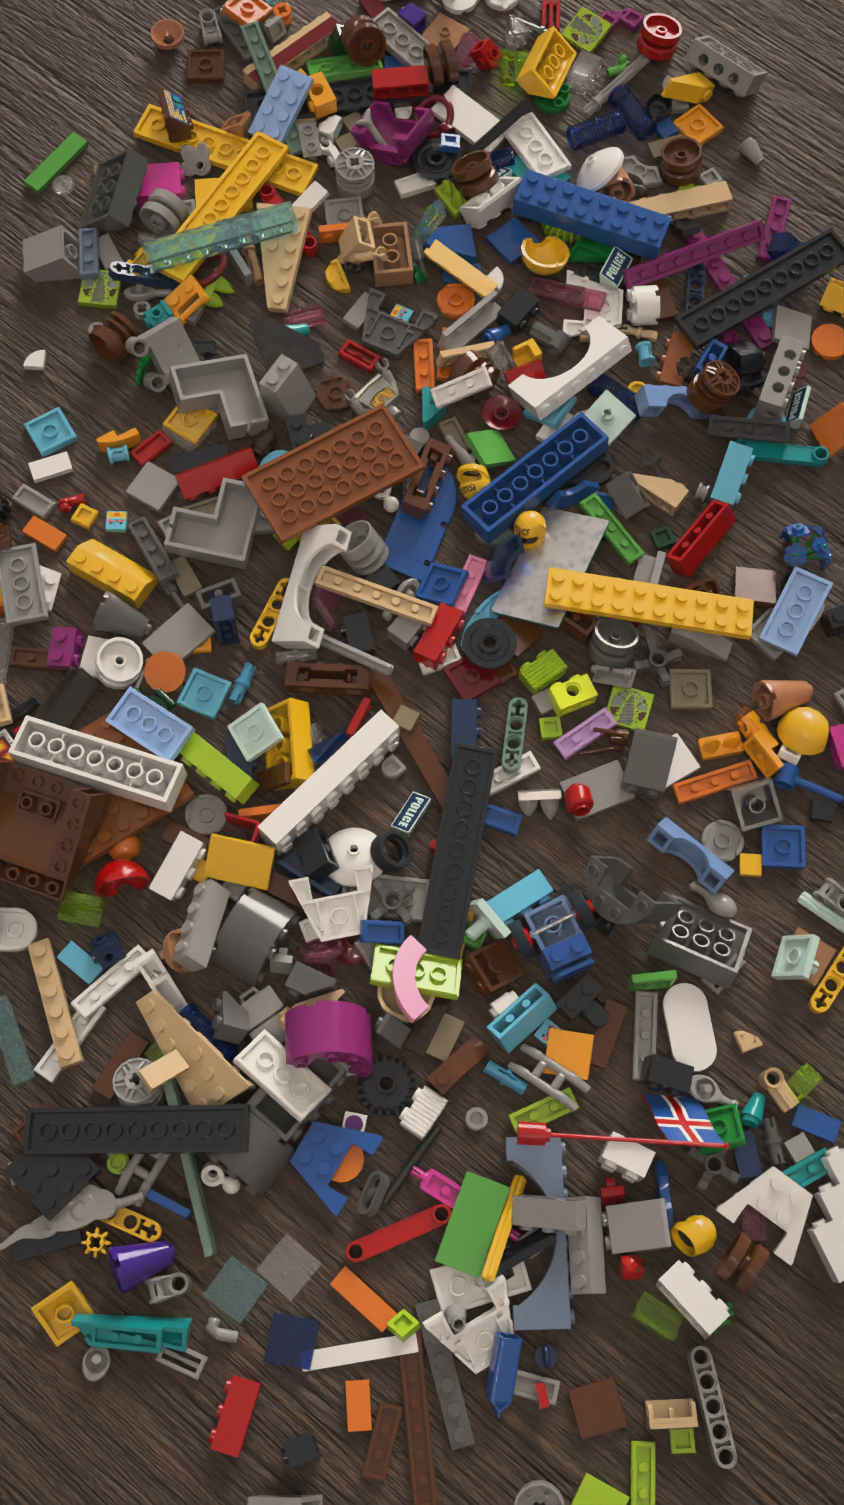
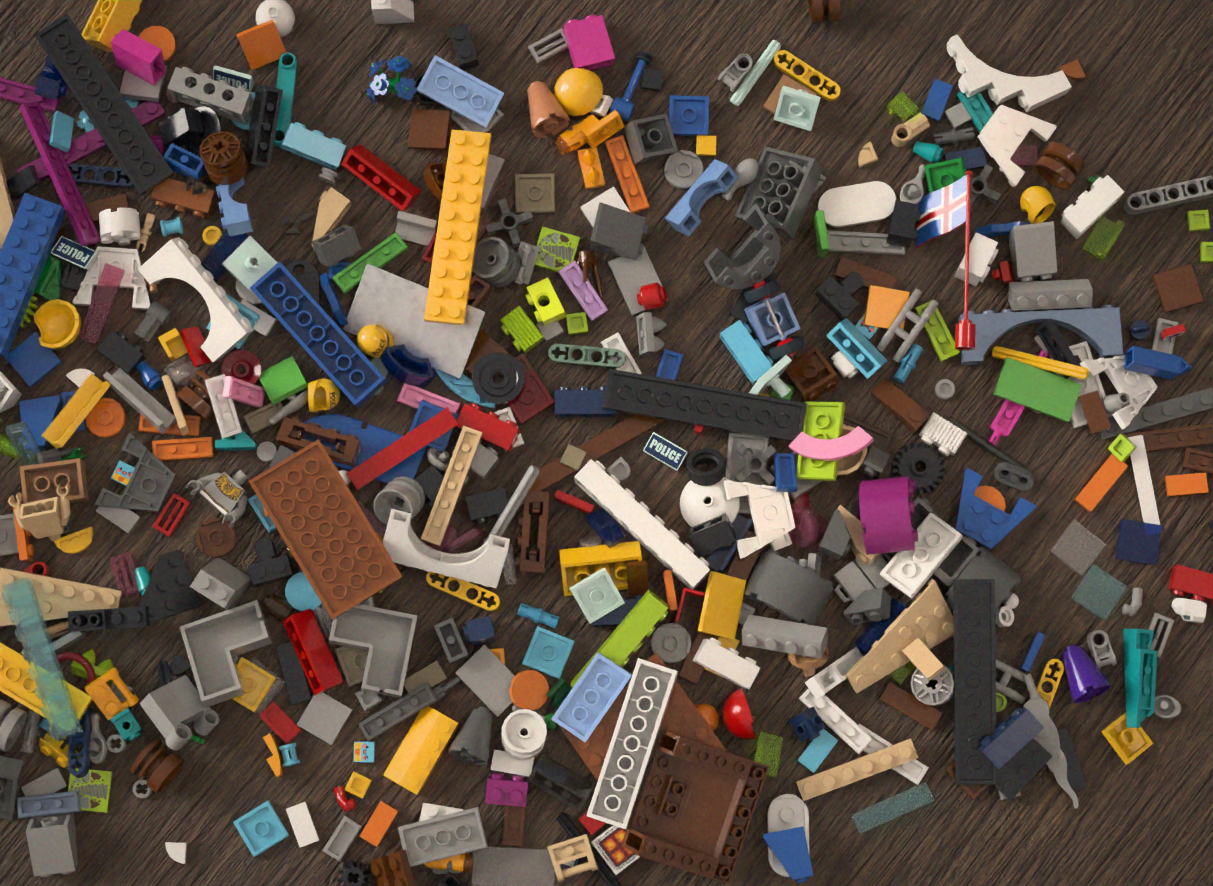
camera: 90 degrees left, 10 degrees up
(69, 1167) = (1010, 737): none -> dark blue brick
(90, 1243) = (1061, 713): yellow gear -> none
(194, 1183) = (1017, 630): sand green tile -> none
(208, 1399) = (1190, 609): none -> white rock
(257, 293) = (108, 618): none -> black slope
(354, 1121) = (952, 495): tile -> none
(398, 1233) = (1046, 454): red piece -> none
(418, 554) = (402, 448): none -> red tile
(445, 1037) = (874, 416): dark tan tile -> none
(445, 1292) = (1094, 412): none -> reddish brown tile
(476, 406) = (243, 392): none -> bright pink tile
(549, 1213) = (1028, 323): light grey brick -> none
(566, 959) = (807, 307): blue brick -> none
(630, 1267) = (1066, 258): red rock -> none
(662, 538) = (376, 215): dark green tile -> none
(671, 1413) = (1179, 228): tan hinge -> none
(736, 258) = (61, 131): none -> medium azure tile
(815, 315) = (138, 57): none -> dark pink brick

